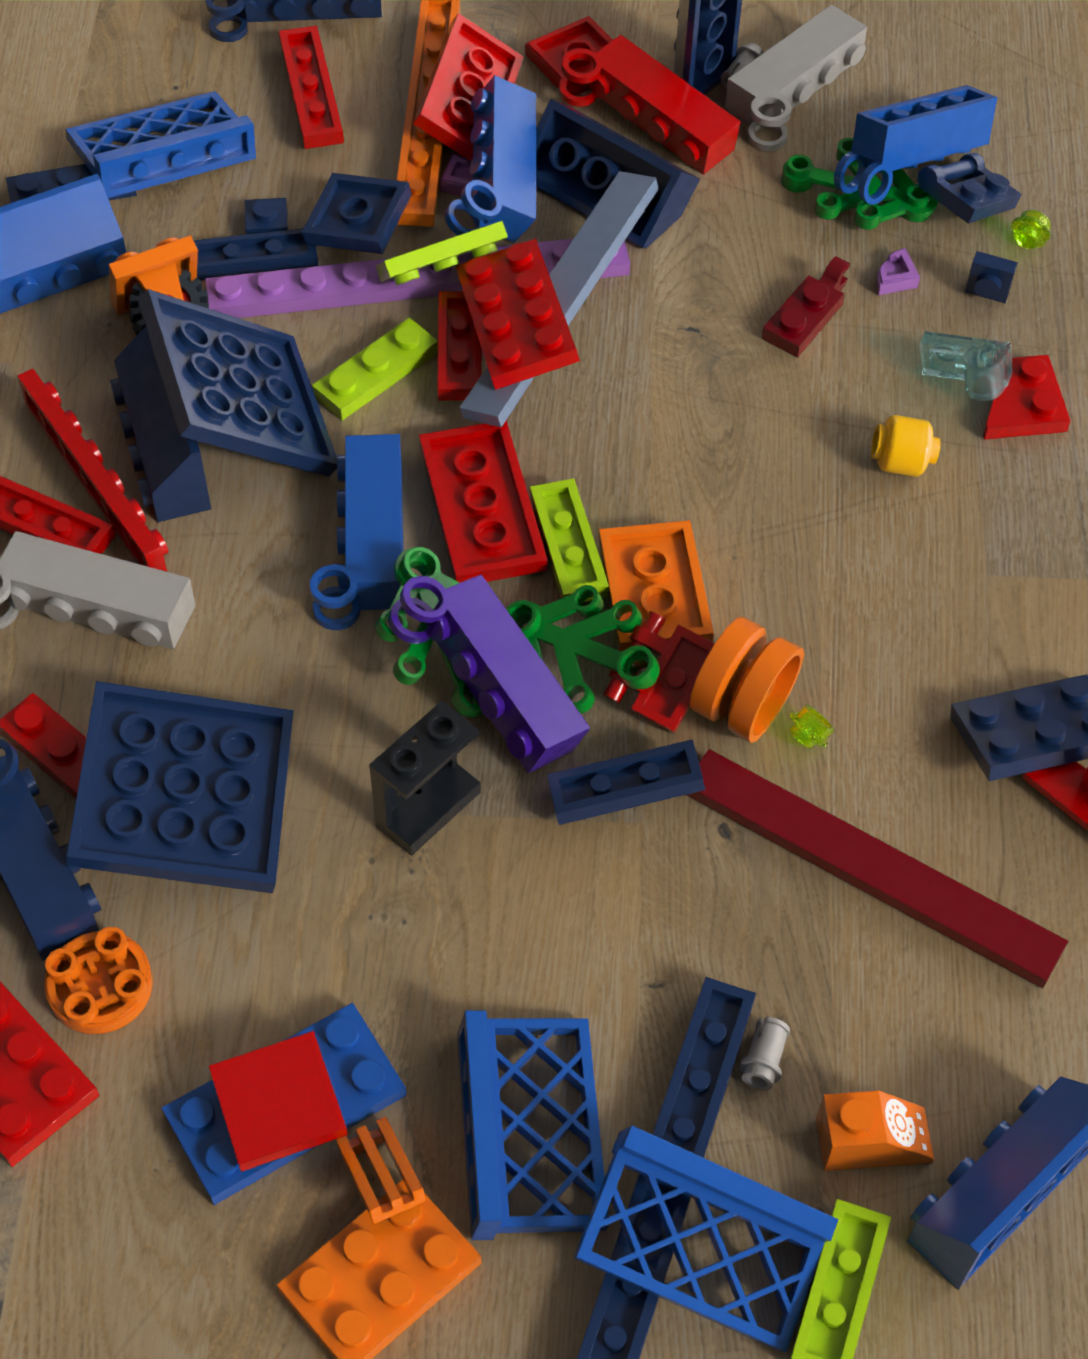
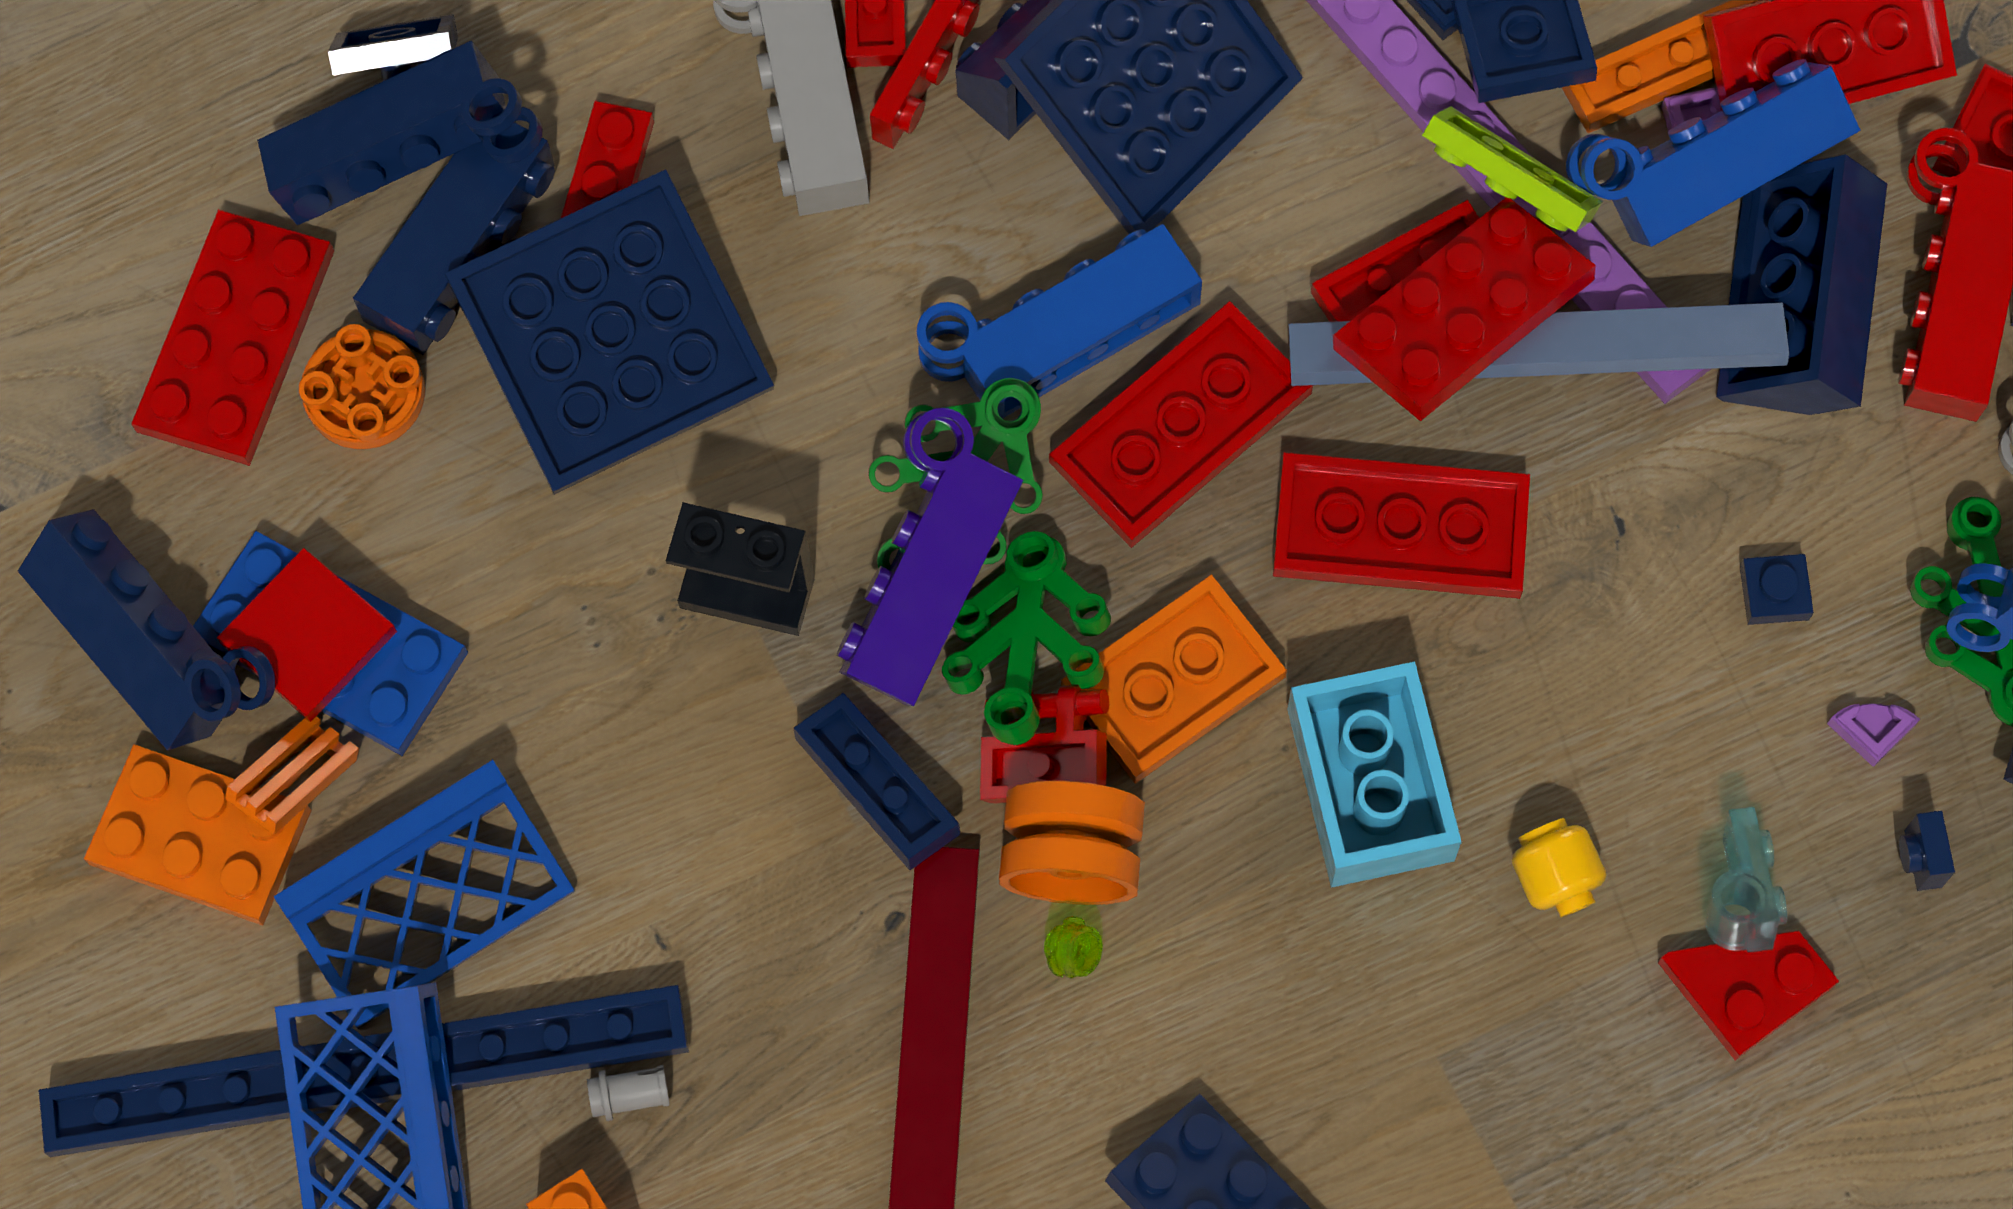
camera: 65 degrees right, 15 degrees up
(191, 1229) = (138, 632): none -> dark blue hinge
(375, 368) = (1315, 195): lime plate -> none
(568, 538) = (1181, 548): lime plate -> none
(626, 424) = (1402, 525): none -> red plate
(781, 274) = (1776, 589): none -> dark blue plate
(791, 504) = (1373, 774): none -> medium azure brick
(807, 310) = (1733, 648): dark red plate -> none

